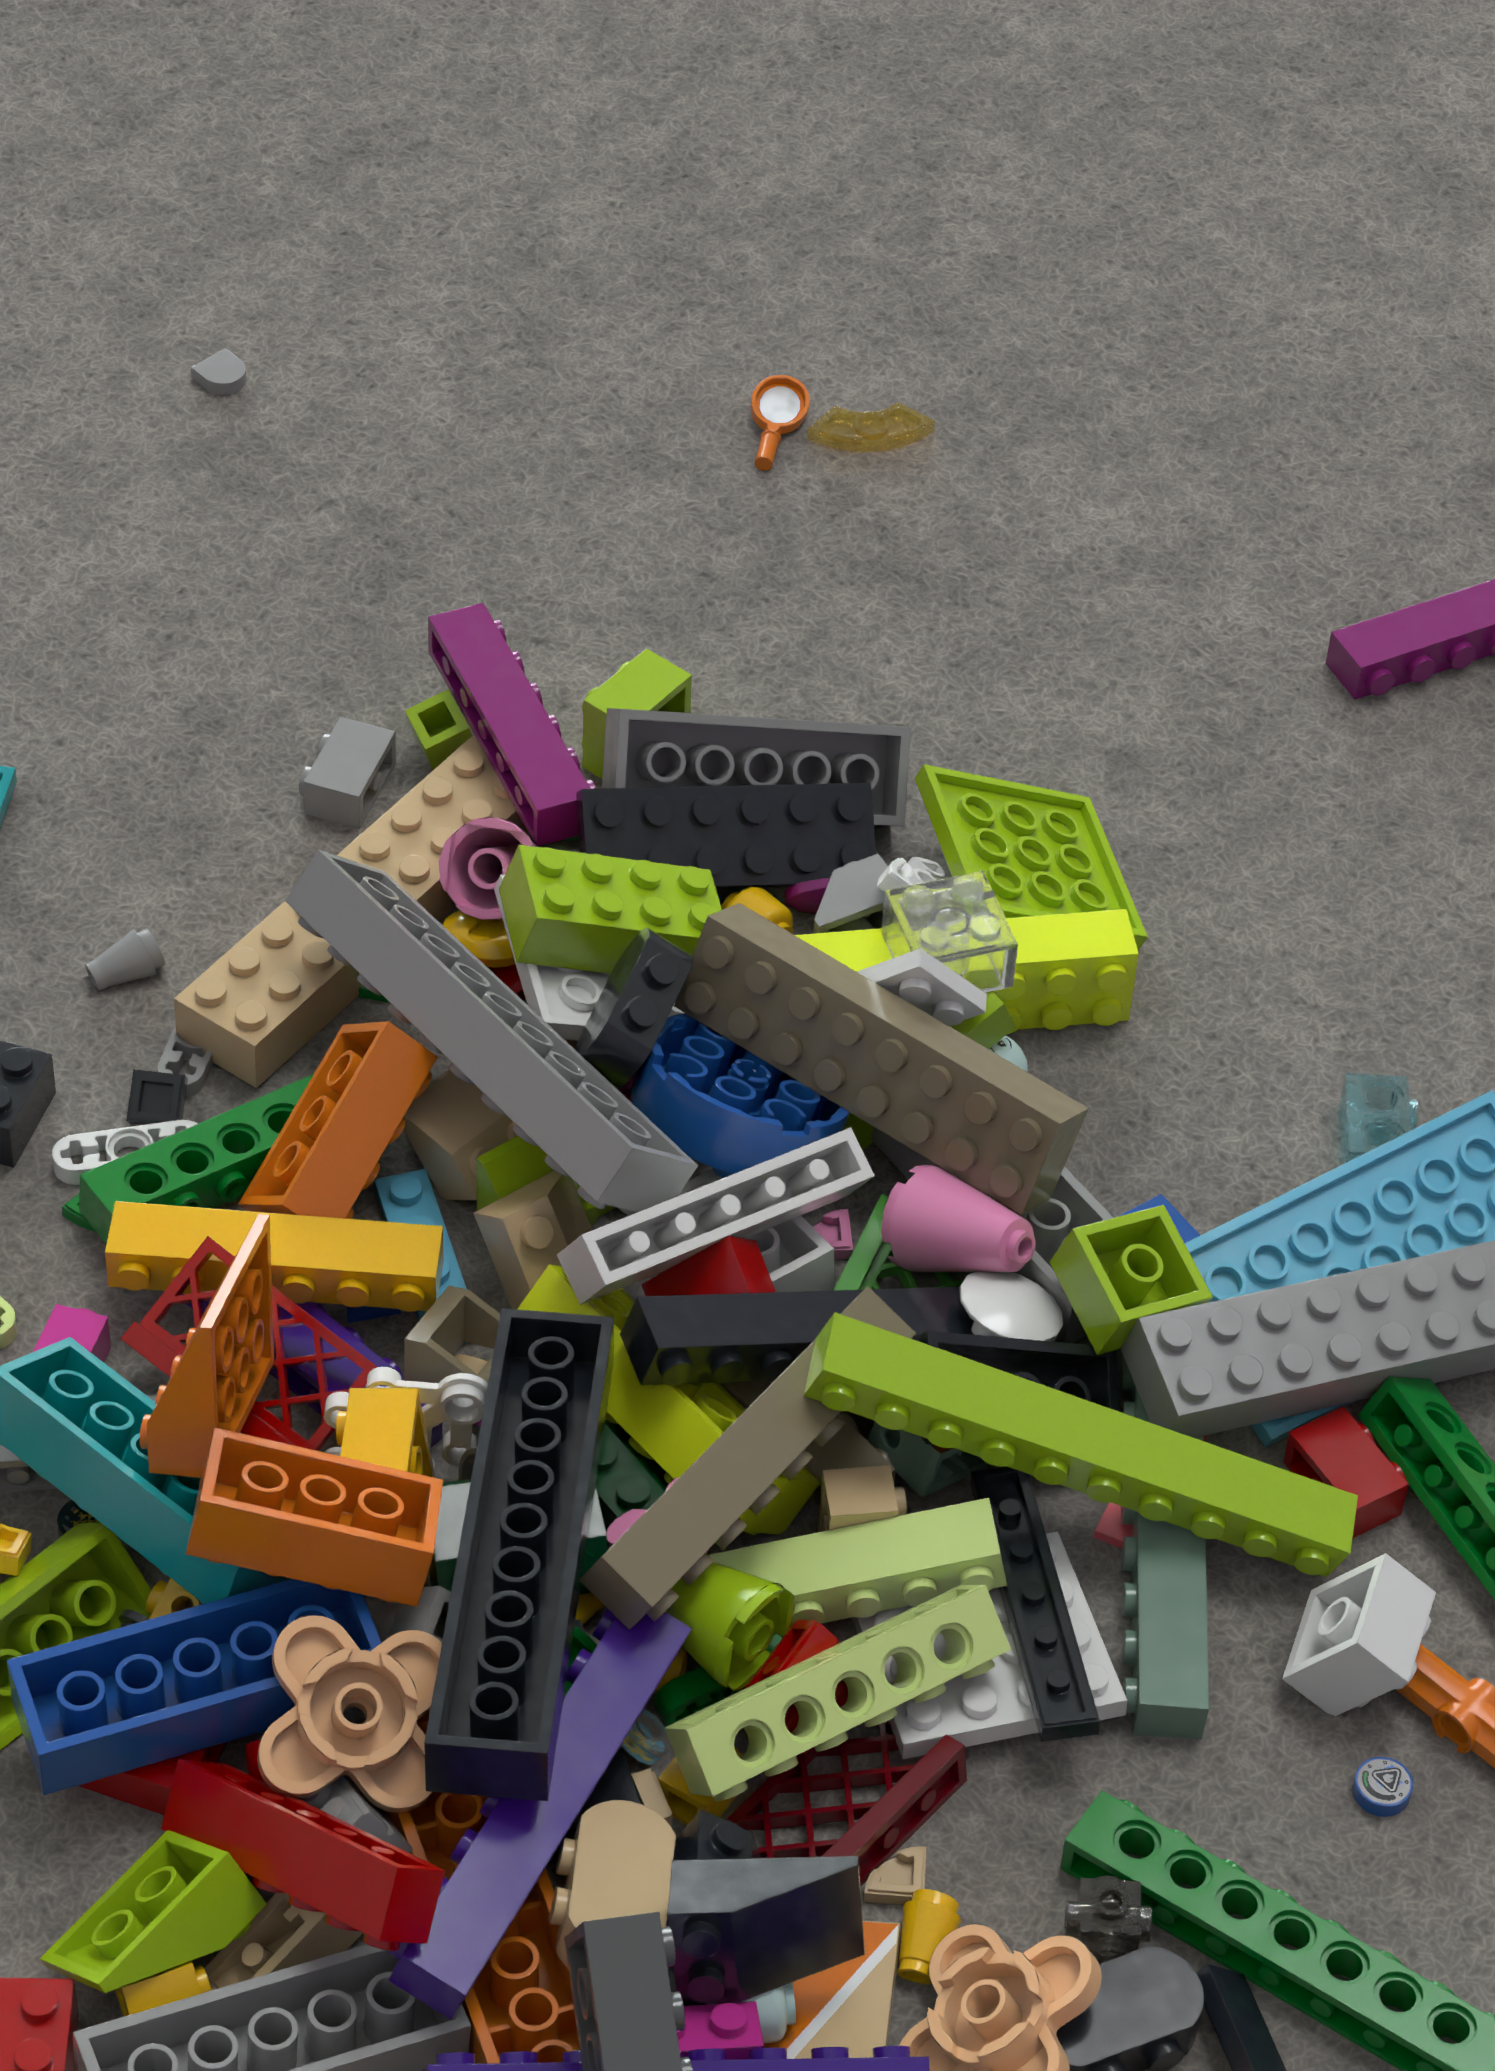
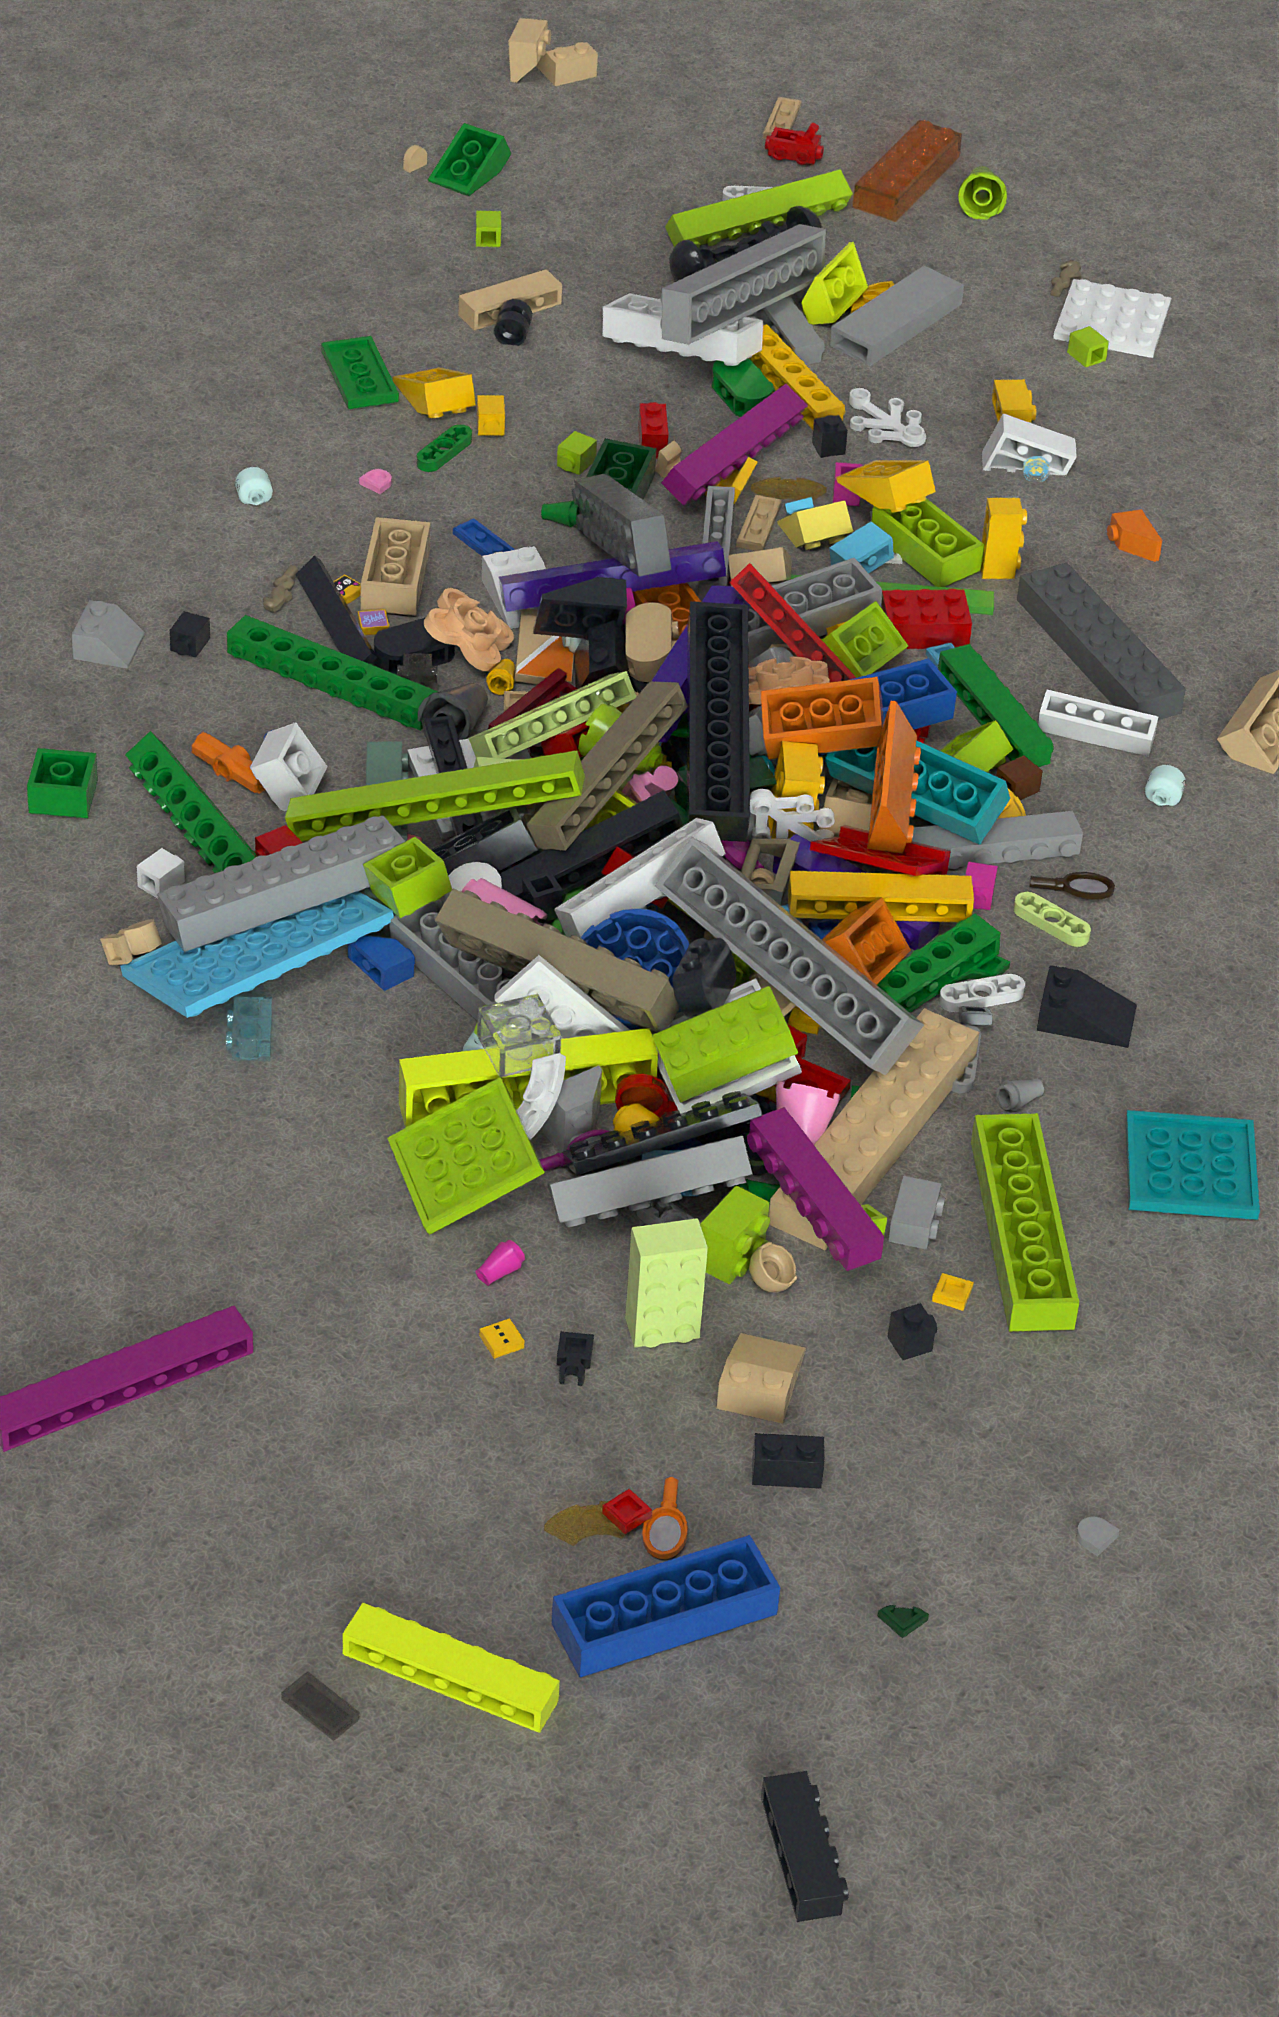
camera: 175 degrees right, 5 degrees down
(191, 739) = (1024, 1223): none -> lime brick
(321, 678) = (952, 1291): none -> yellow tile
(399, 601) = (912, 1331): none -> black brick
(494, 301) = (903, 1619): none -> dark green tile
(577, 684) = (772, 1268): none -> tan hair
(608, 454) = (788, 1460): none -> black brick
(623, 569) = (759, 1377): none -> tan slope
(664, 90) = (803, 1846): none -> black brick
(753, 592) = (666, 1282): none -> yellowish green brick
(792, 301) = (665, 1605): none -> blue brick
(828, 414) = (627, 1511): none -> red tile
(879, 614) = (574, 1355): none -> black plate
(886, 1261) = (544, 893): none -> black brick
(976, 743) = (501, 1262): none -> dark pink cone
(979, 652) = (501, 1338): none -> yellow tile
(1026, 1805) = (462, 702): none -> dark grey cone
(1058, 272) = (451, 1667): none -> neon yellow brick
(1210, 261) = (320, 1706): none -> clear smoke tile

